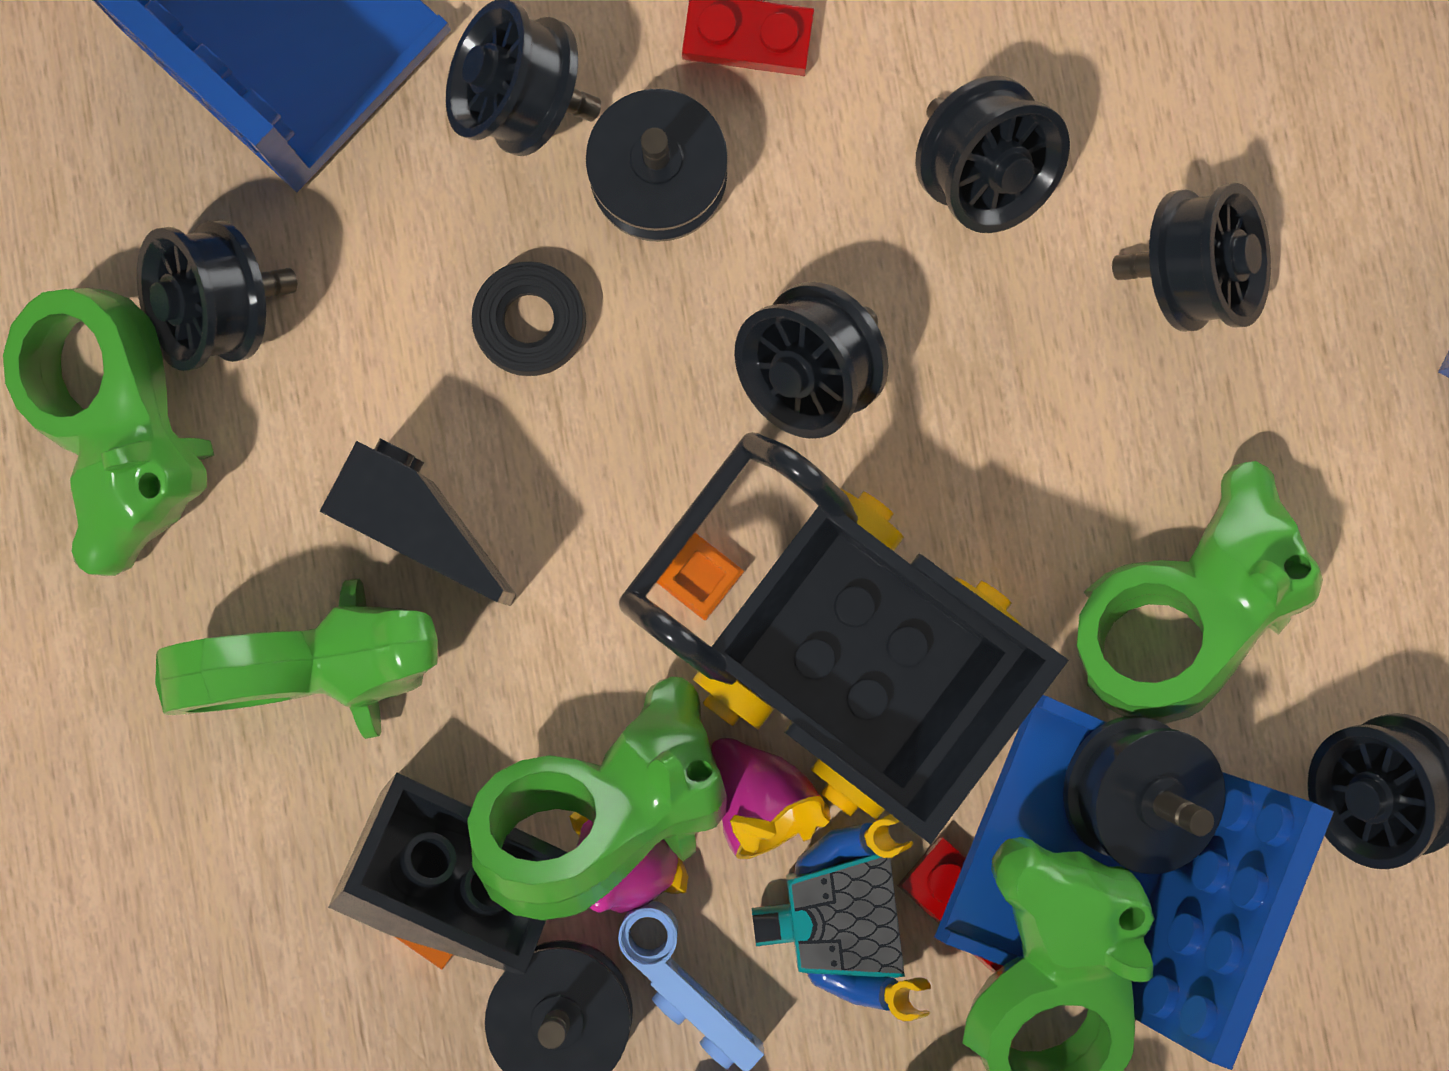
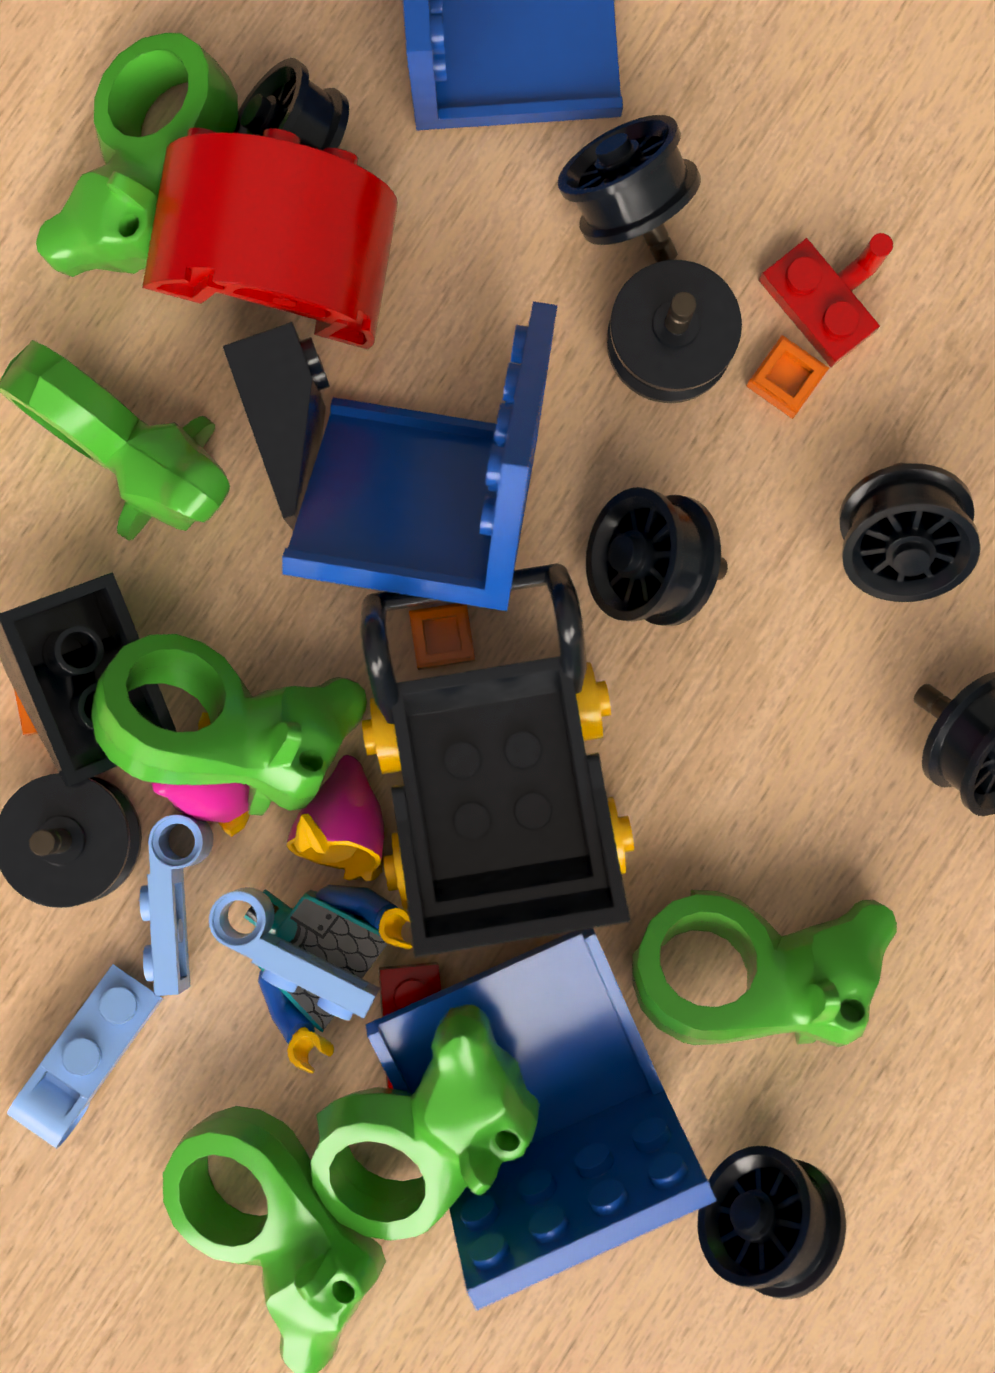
camera: 45 degrees right, 0 degrees up
(267, 382) = (274, 229): none -> red cylinder
(518, 281) = (460, 335): black tyre -> none
(591, 475) = (423, 495): none -> blue bracket
(778, 116) = (787, 376): none -> orange tile
(831, 947) = (287, 964): none -> light blue plate
(1144, 794) = (599, 1064): black wheel -> none

